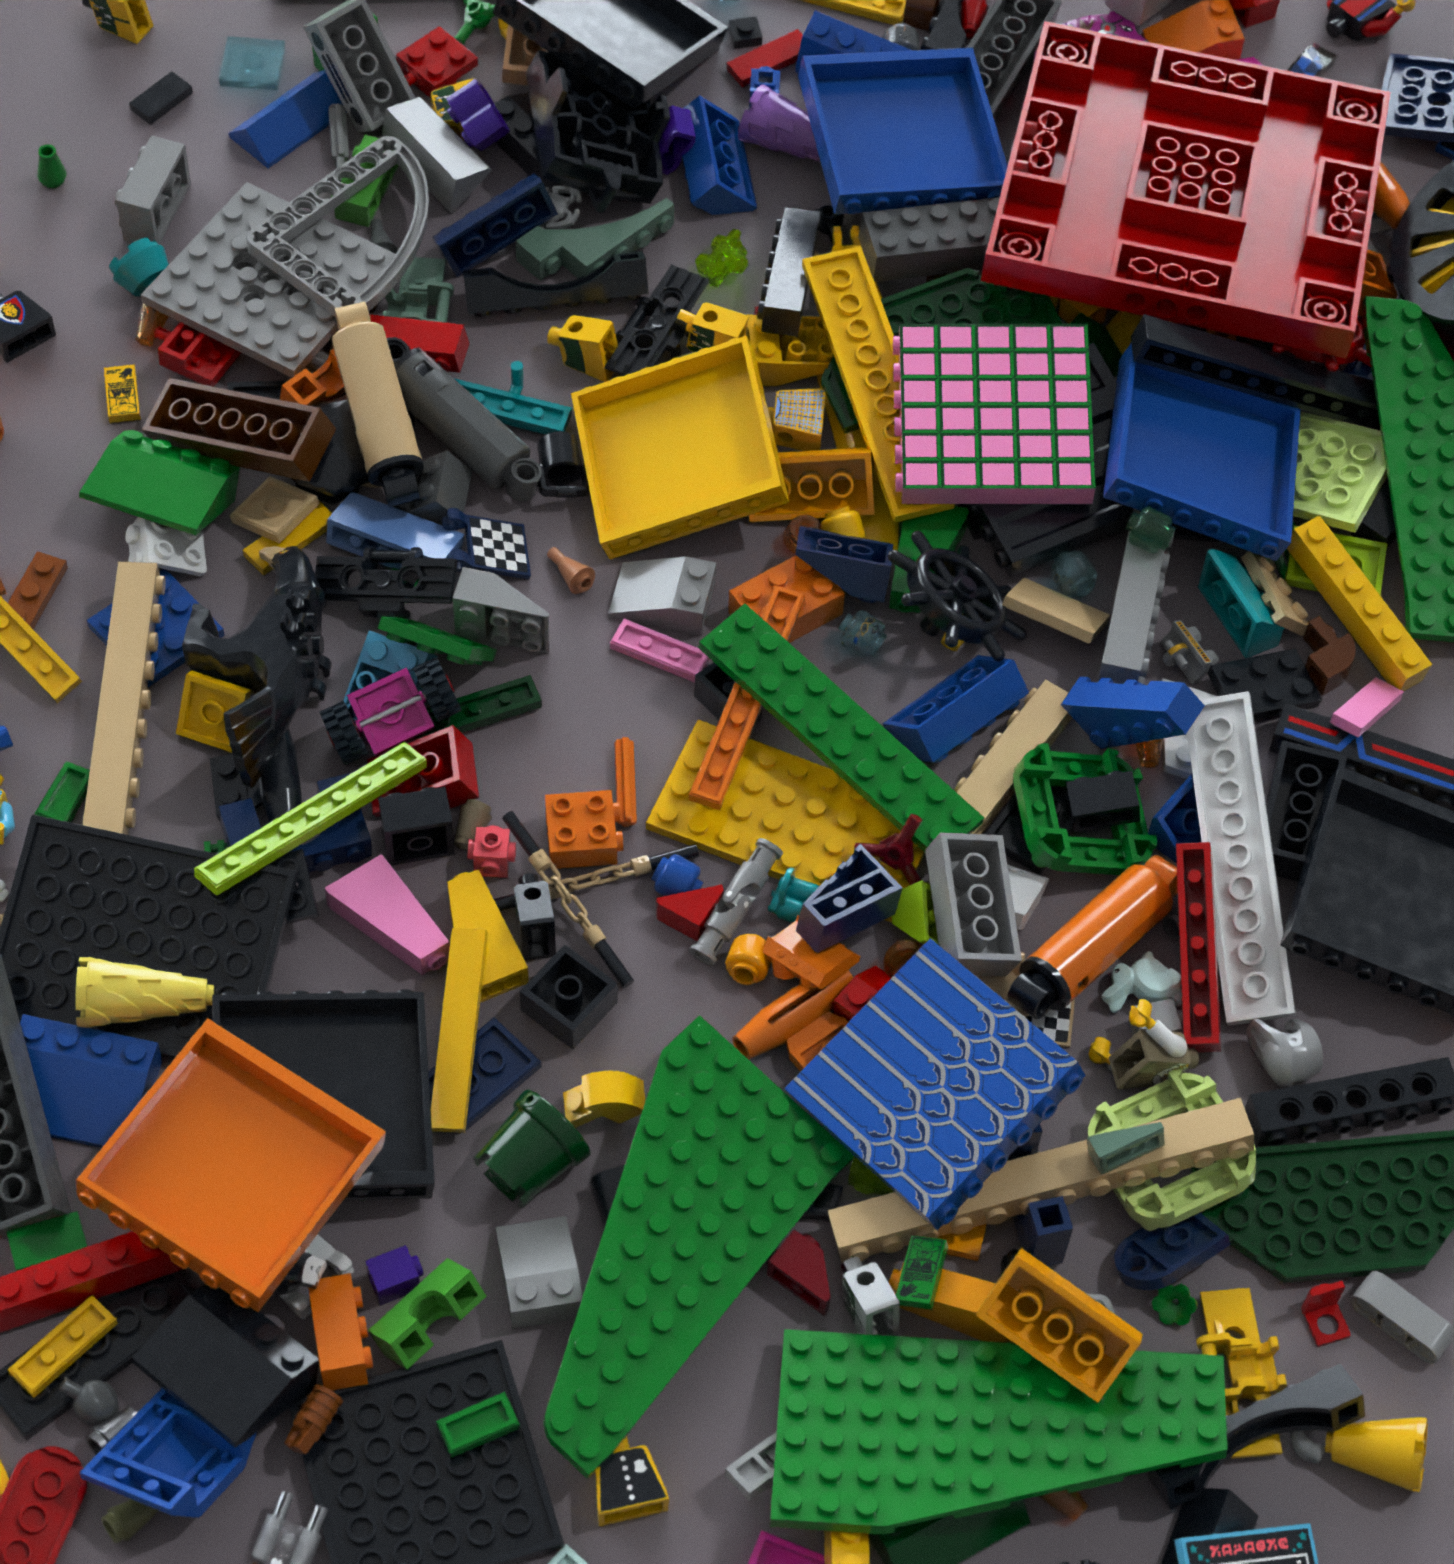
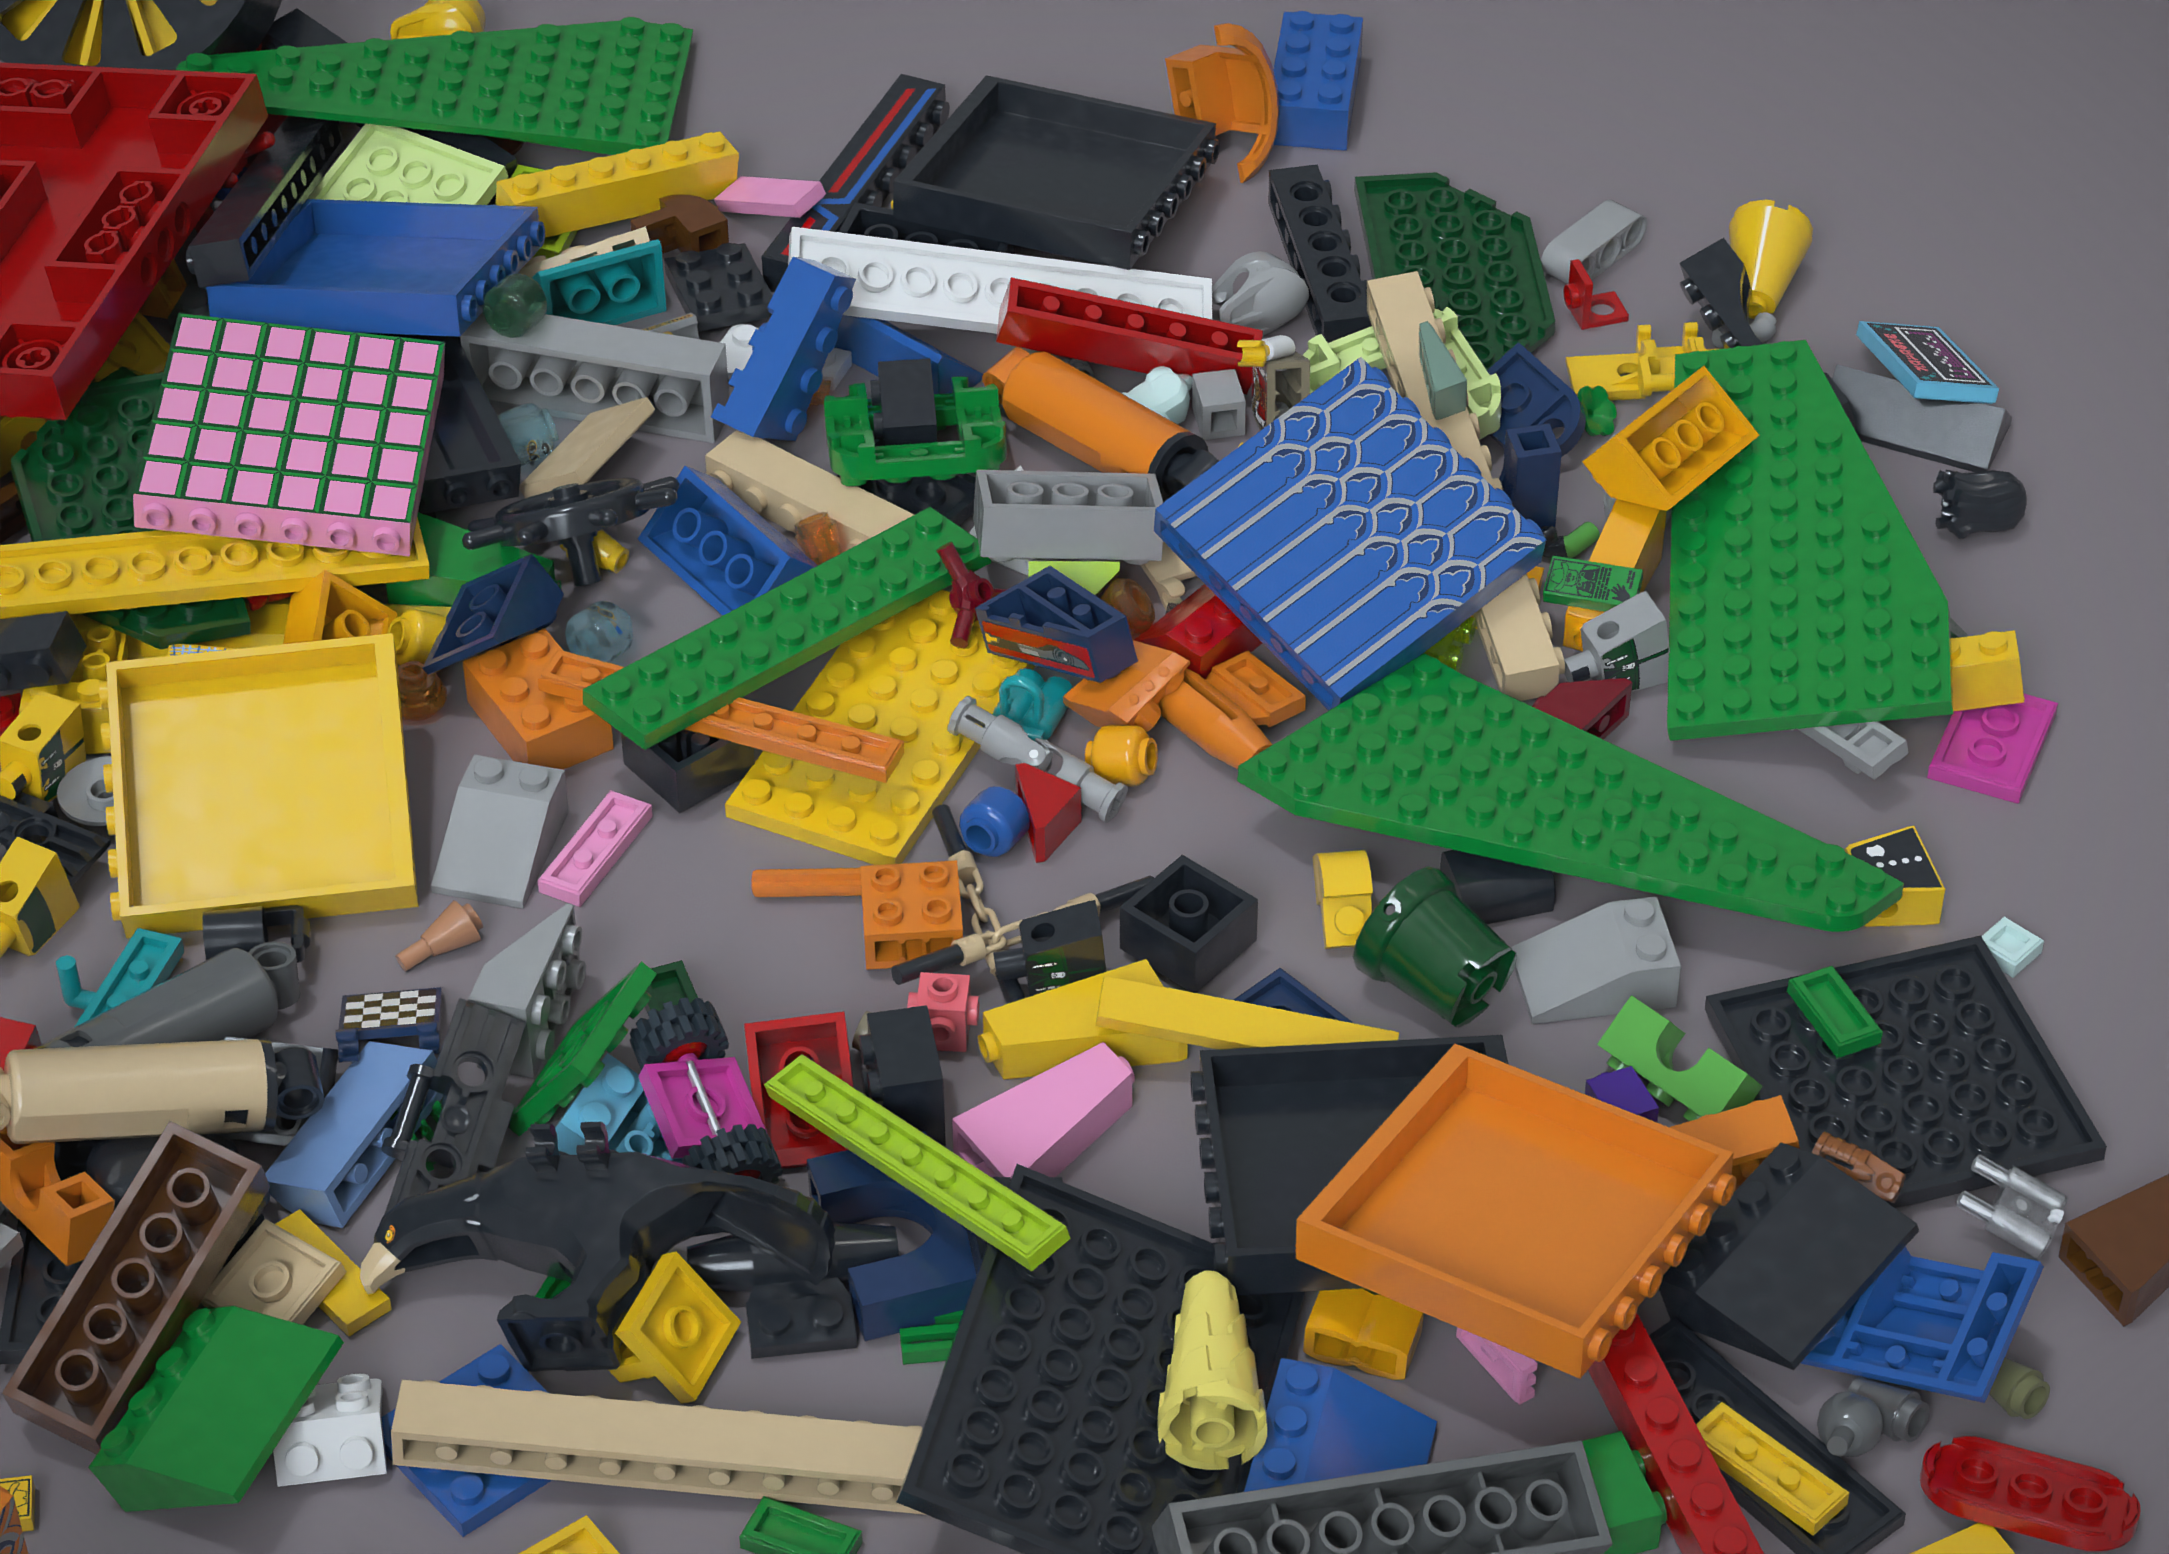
camera: 85 degrees left, 15 degrees down
(958, 758) = (818, 537): none -> clear orange cone

